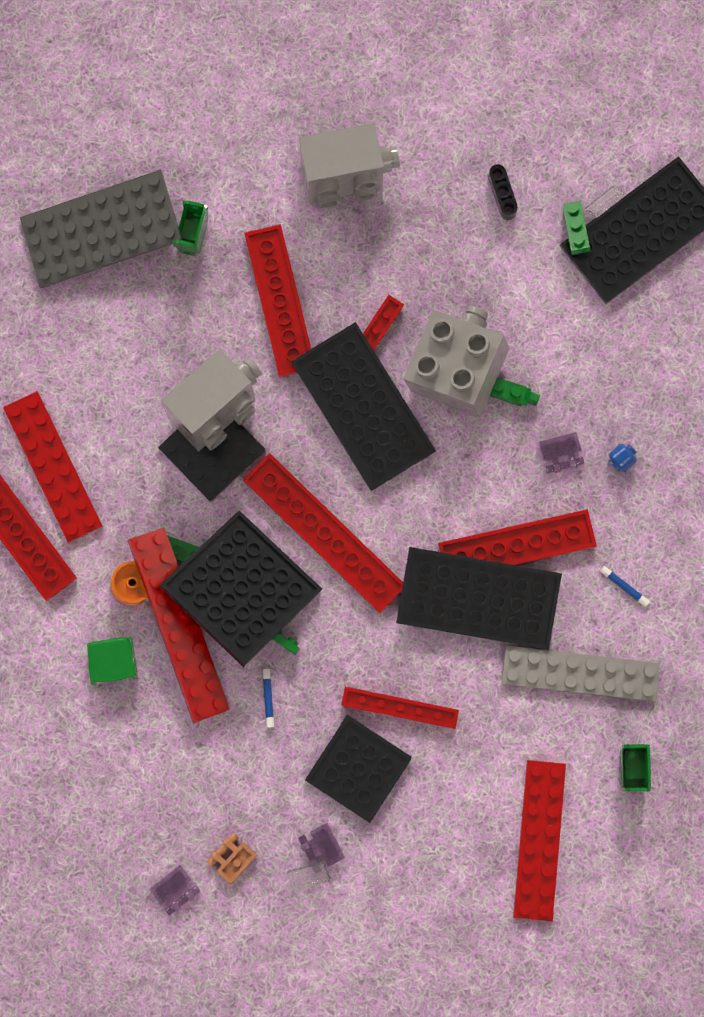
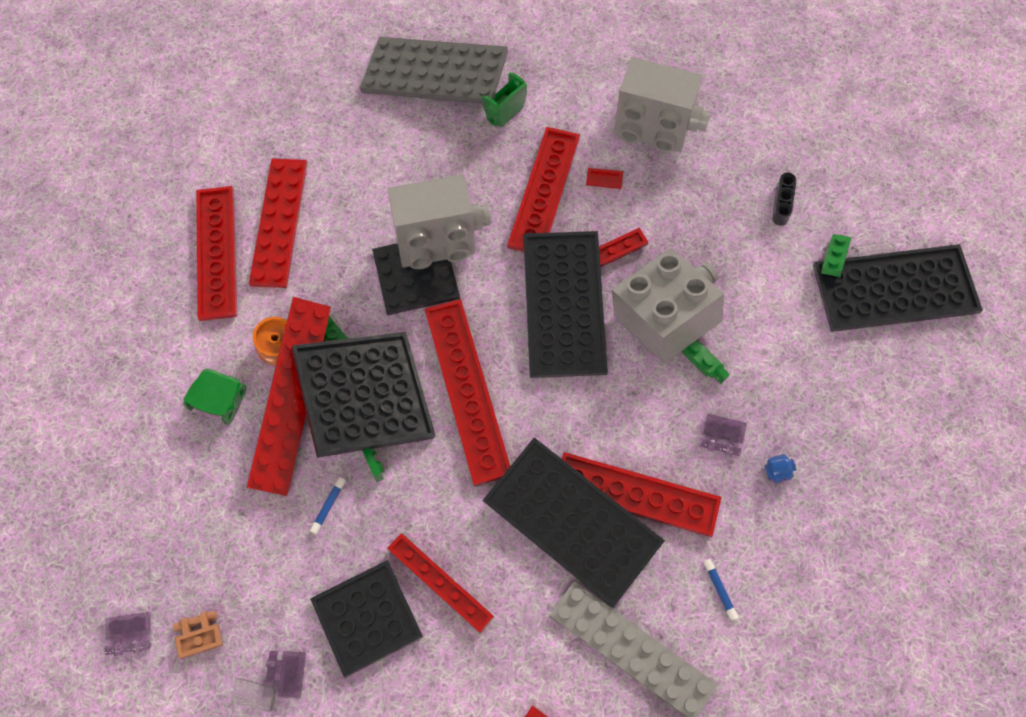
camera: 30 degrees right, 15 degrees down
(327, 257) = (604, 178): none -> red tile

